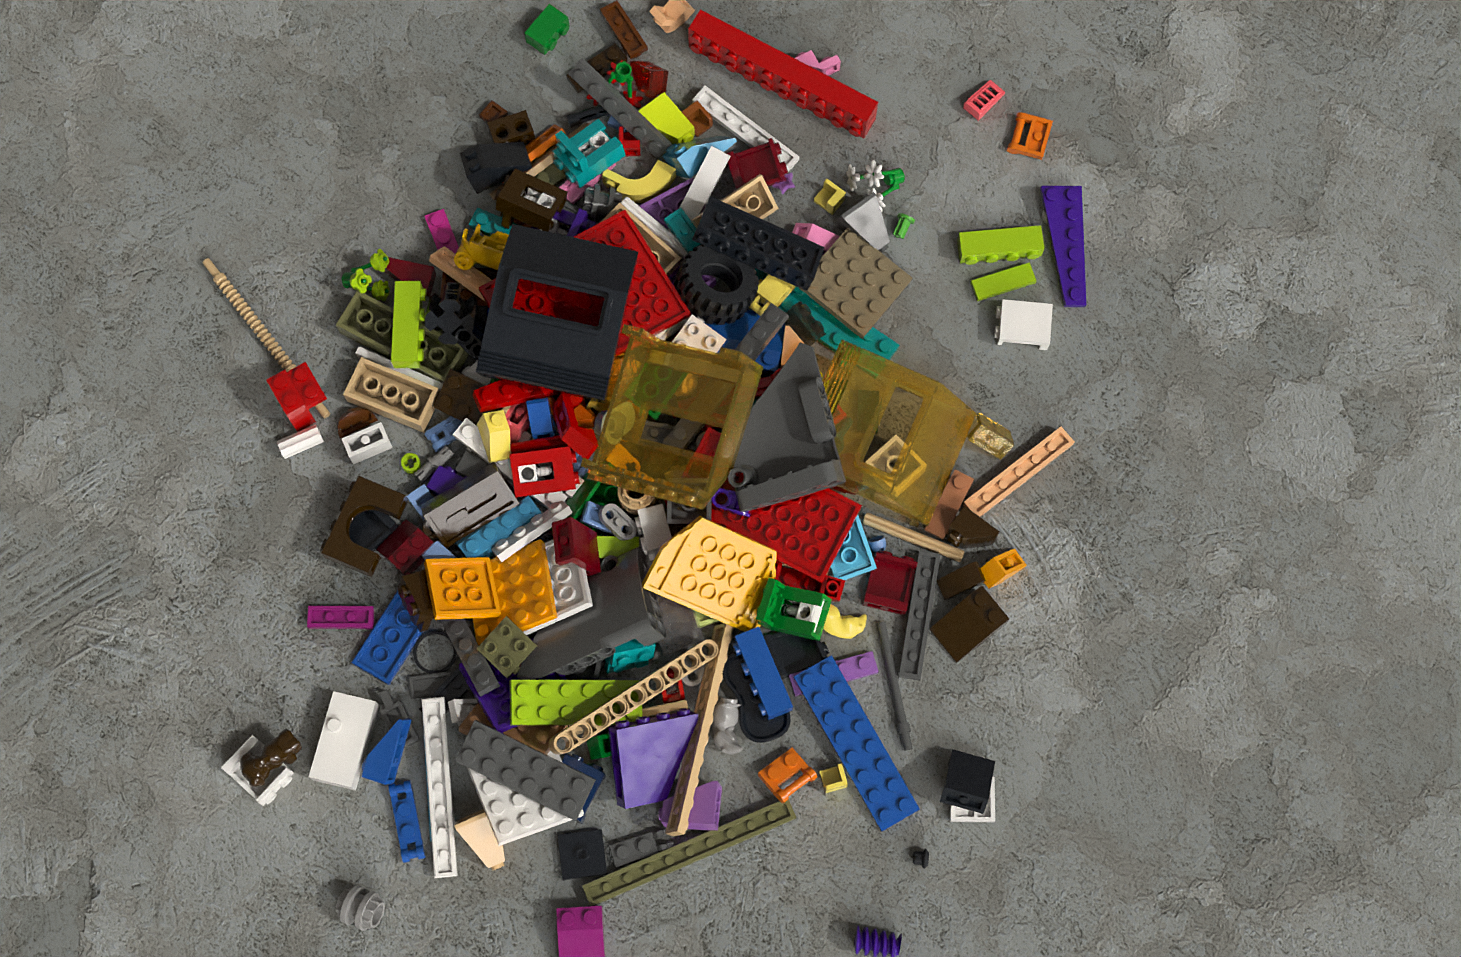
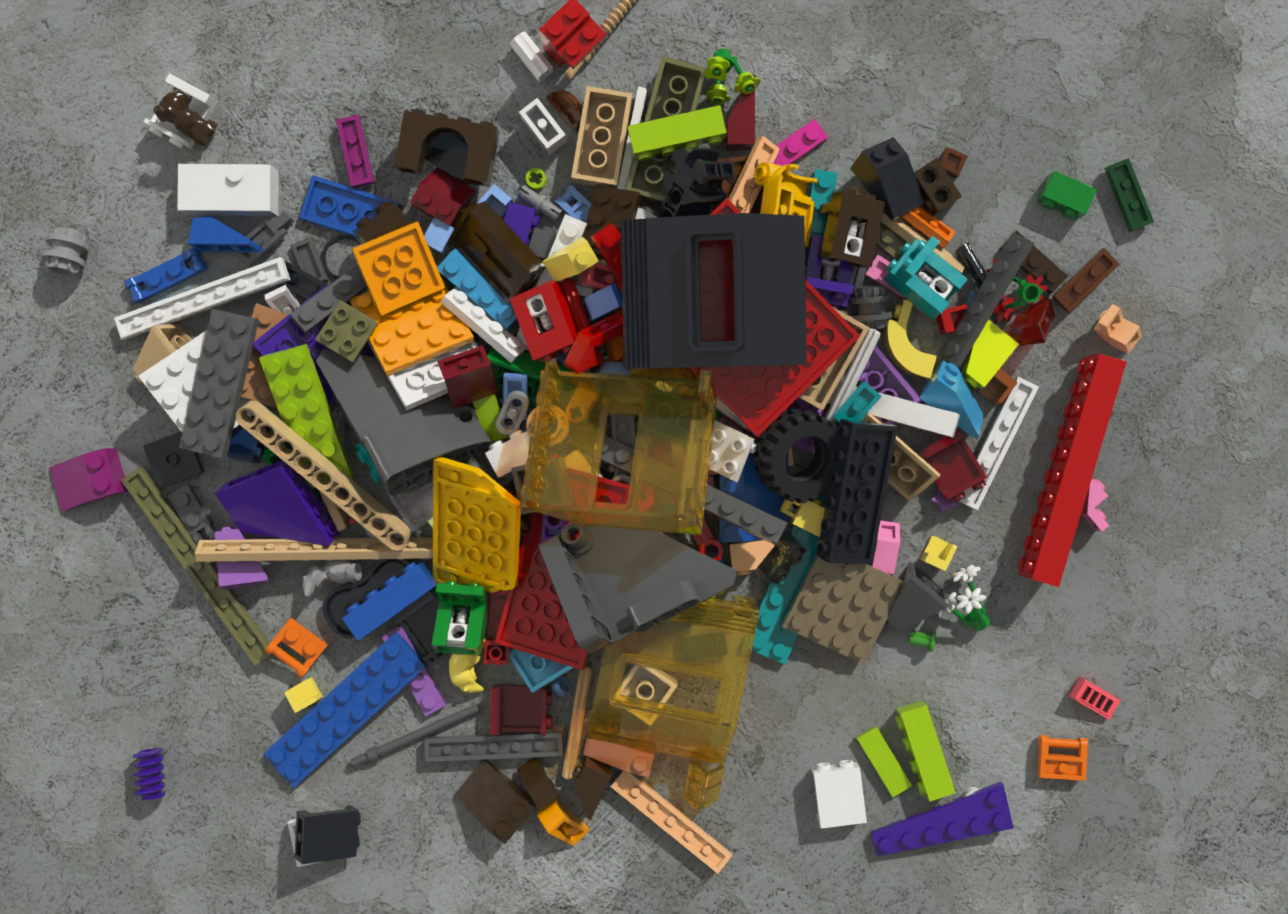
camera: 75 degrees right, 15 degrees up
(922, 858) = (246, 798): black piece -> none

